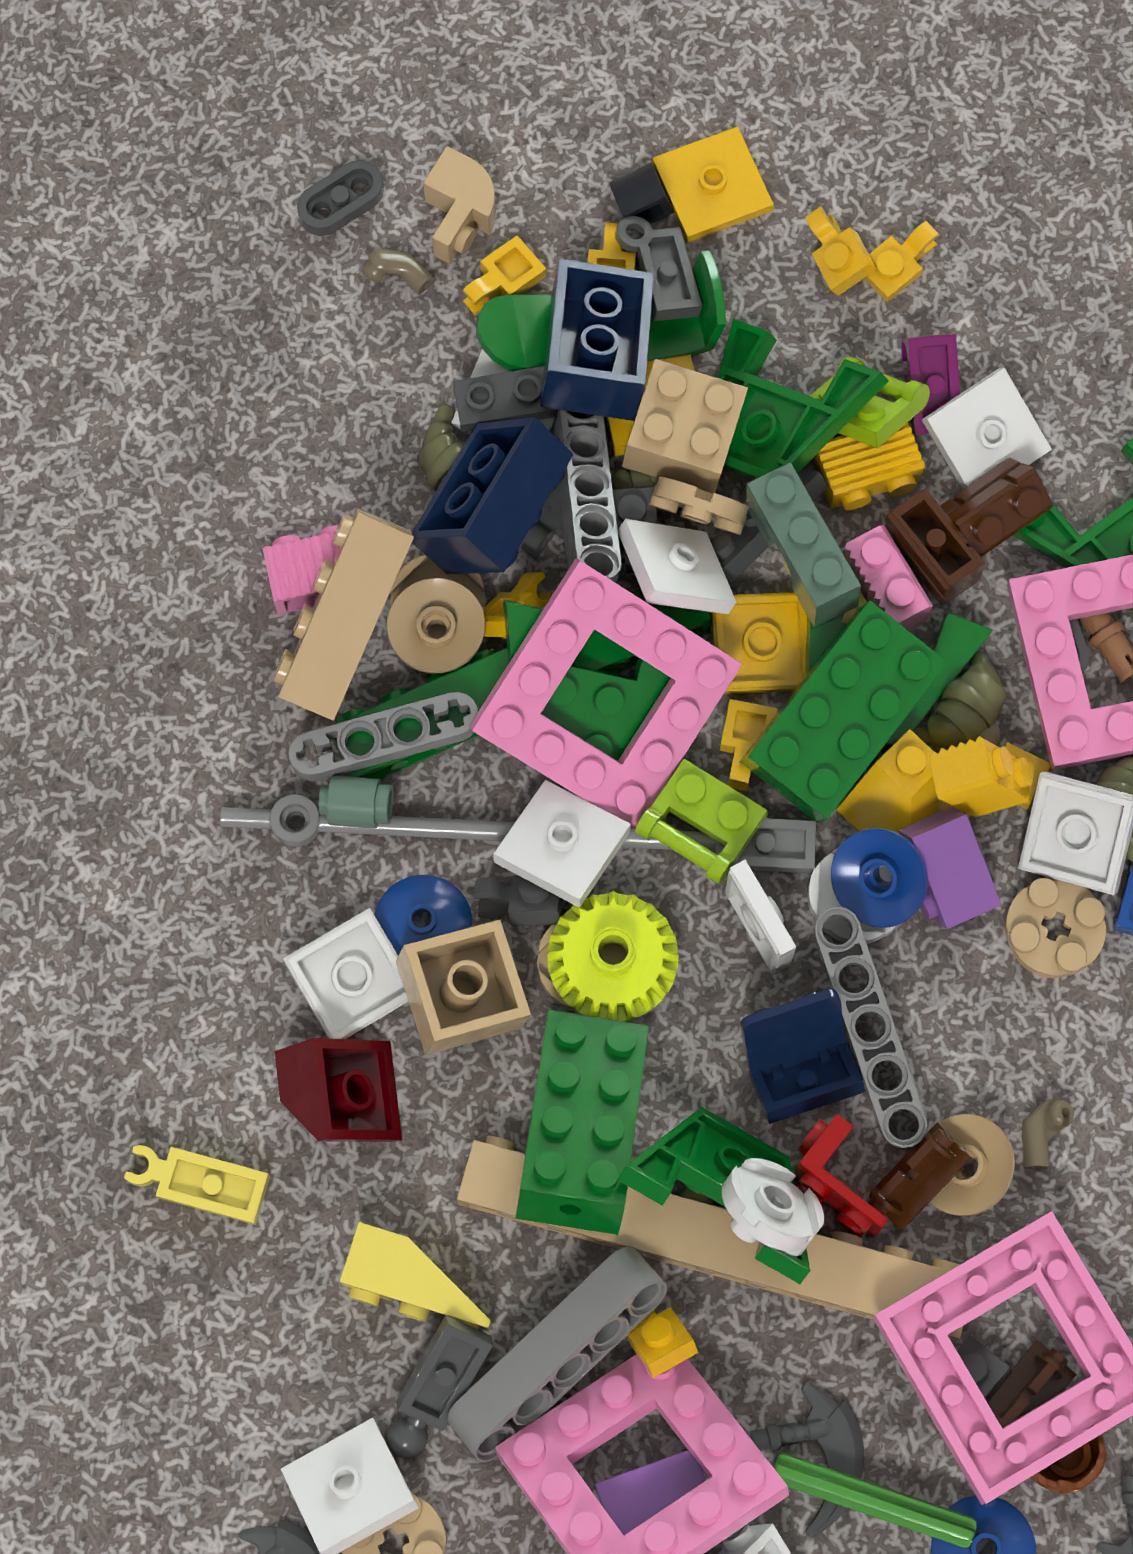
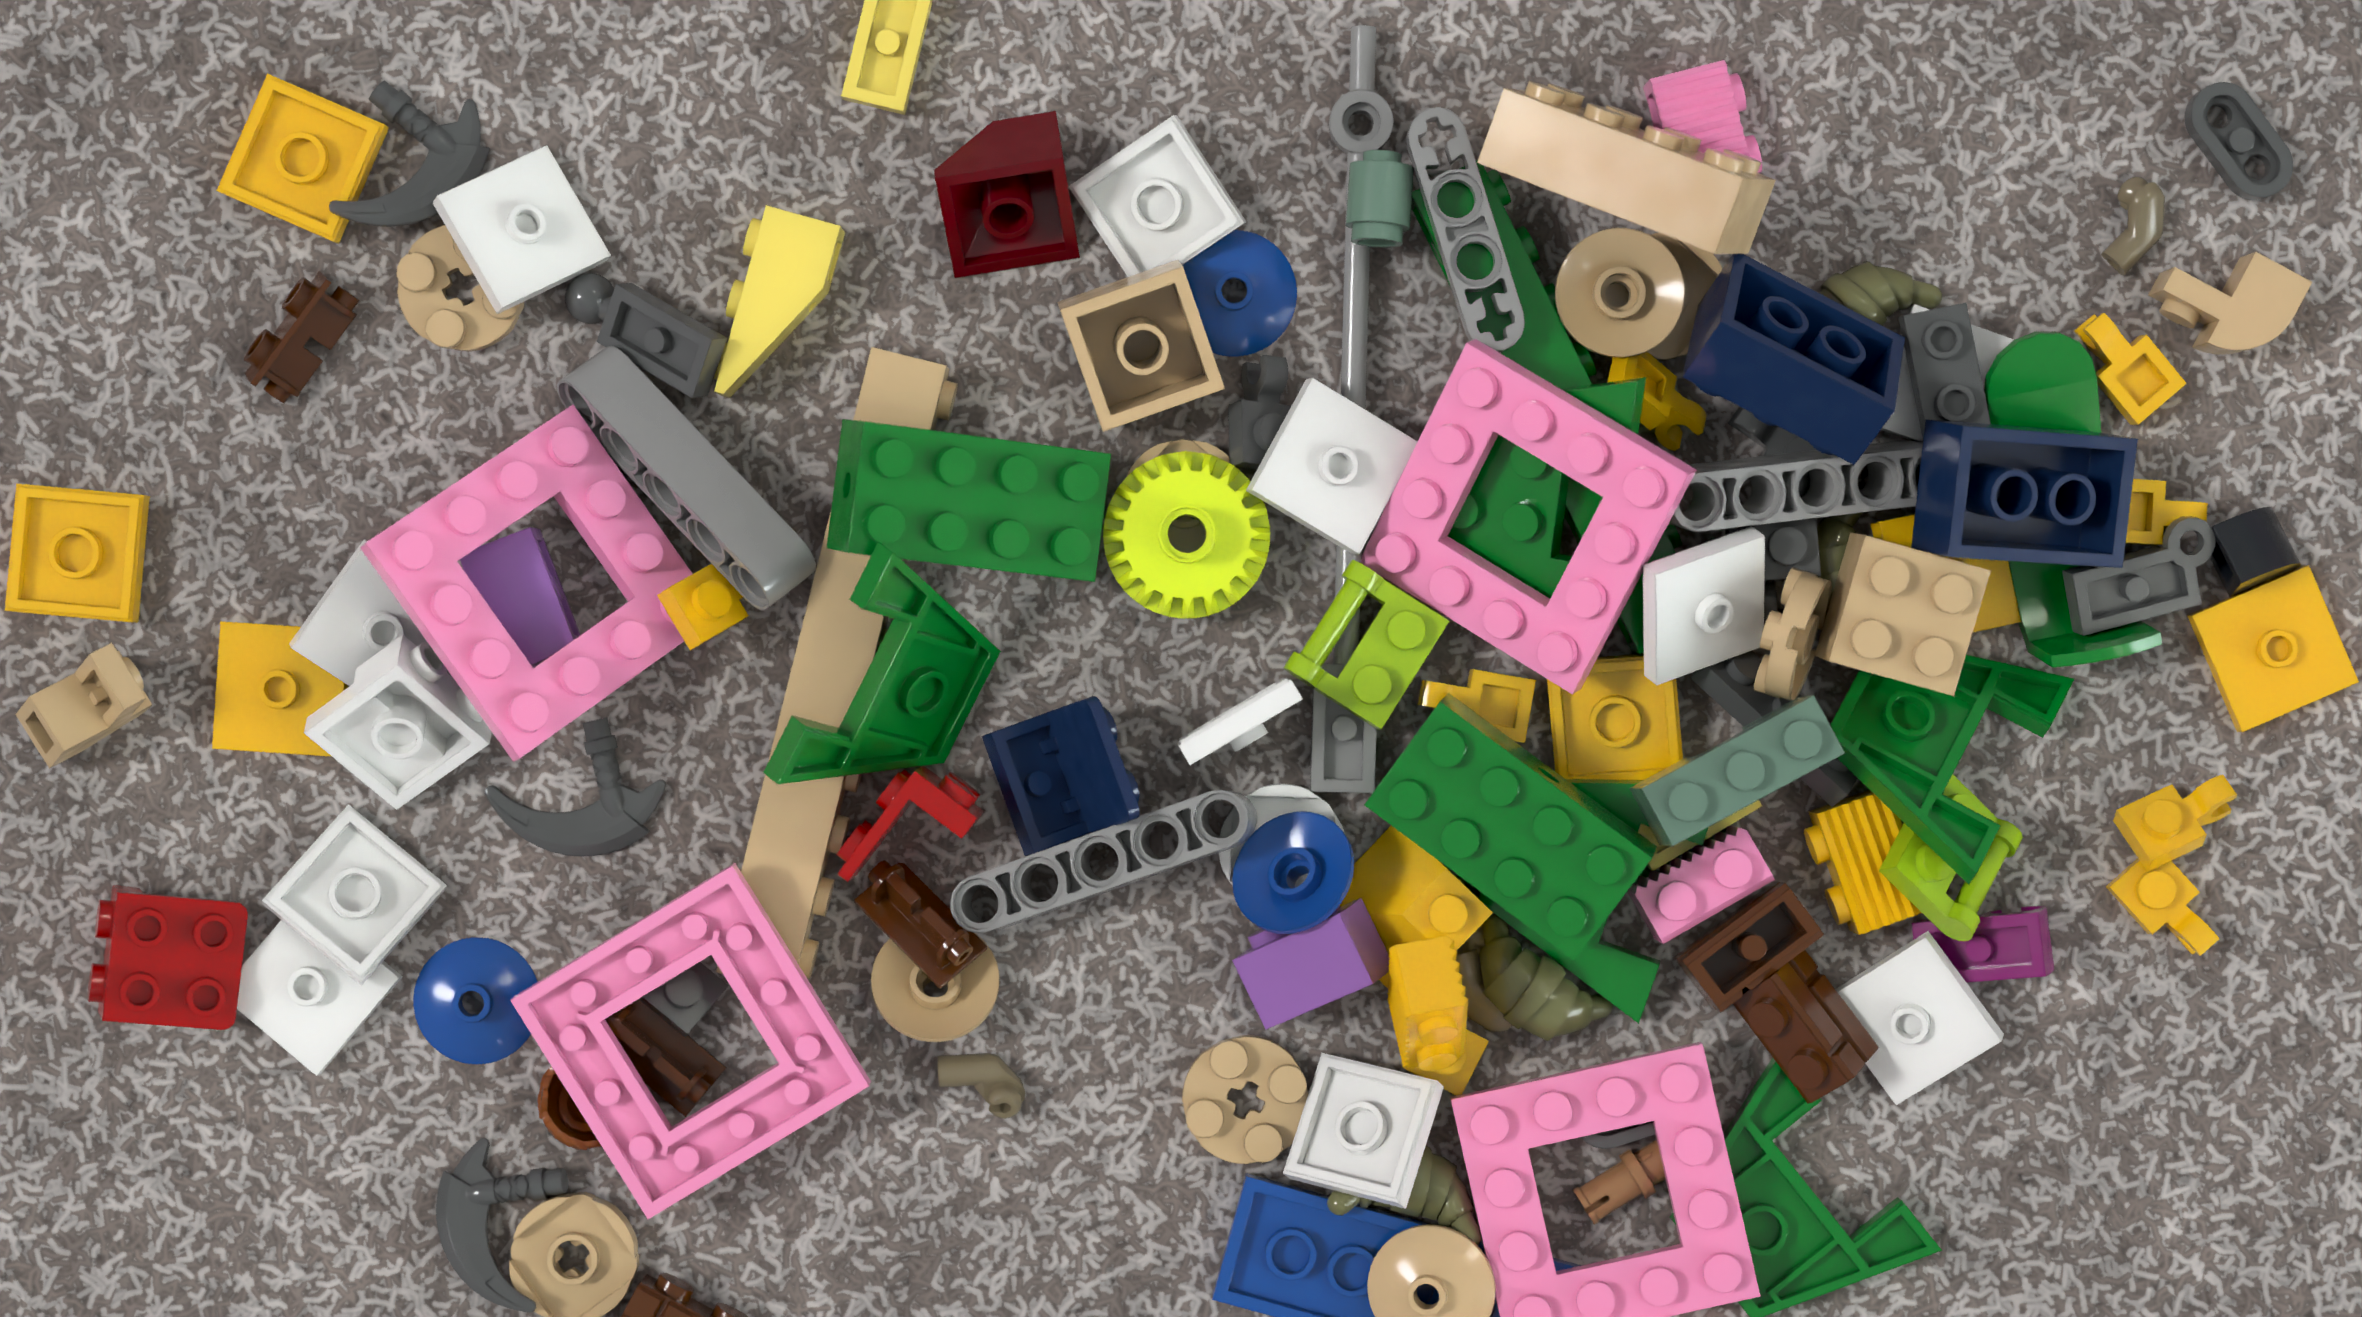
camera: 90 degrees right, 15 degrees up
(770, 1207) = (834, 719): white plate -> none
(876, 1500) = (525, 867): bright green axle -> none

